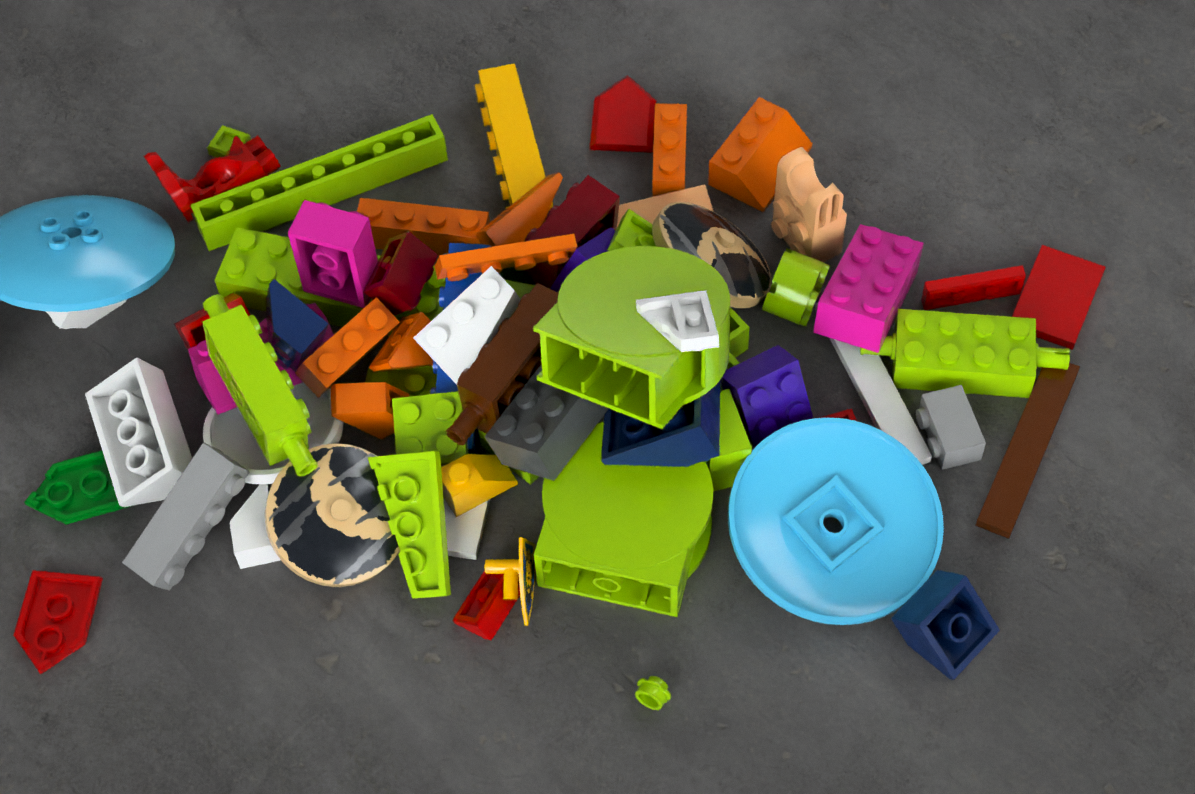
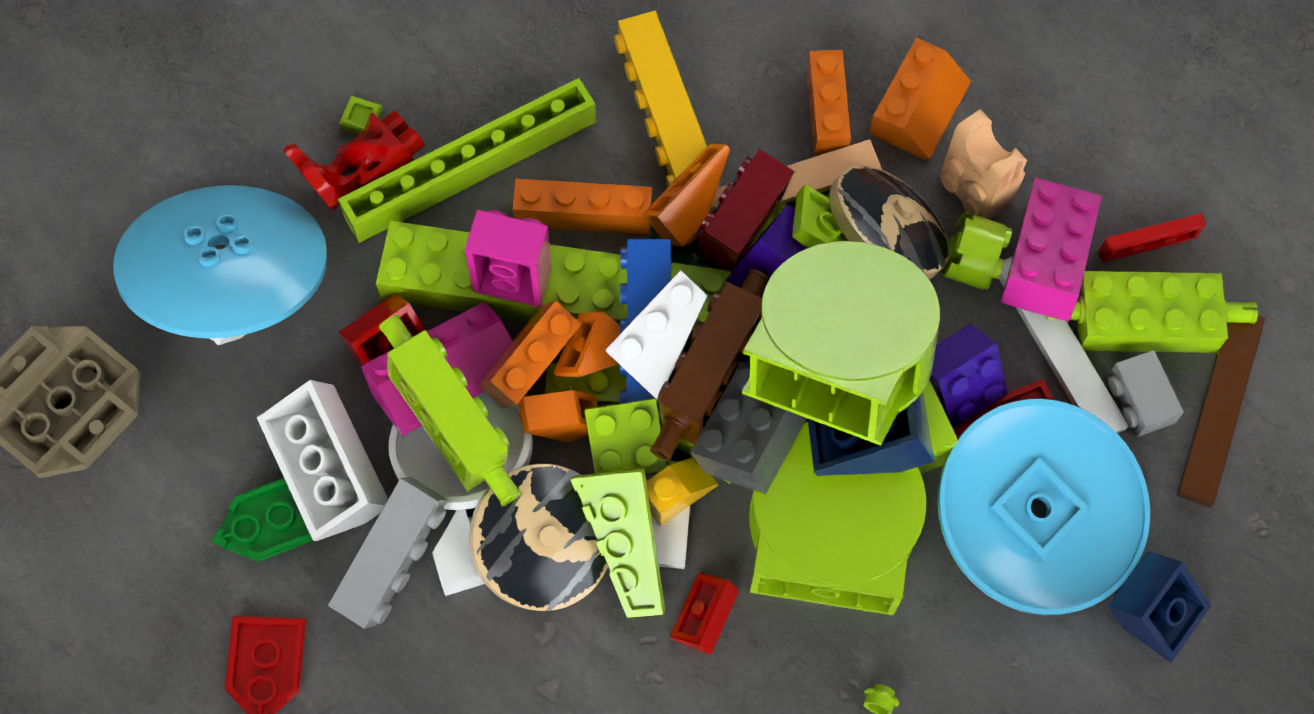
camera: 10 degrees left, 10 degrees up
(292, 327) = (472, 342): dark blue slope -> none
(401, 273) = (576, 270): dark red brick -> none
(511, 568) = (726, 584): shield -> none
(518, 255) = (677, 259): orange plate -> none
(623, 118) = (773, 63): red tile -> none
(682, 319) = (897, 334): white wing -> none
(1059, 295) = (1236, 239): red tile -> none

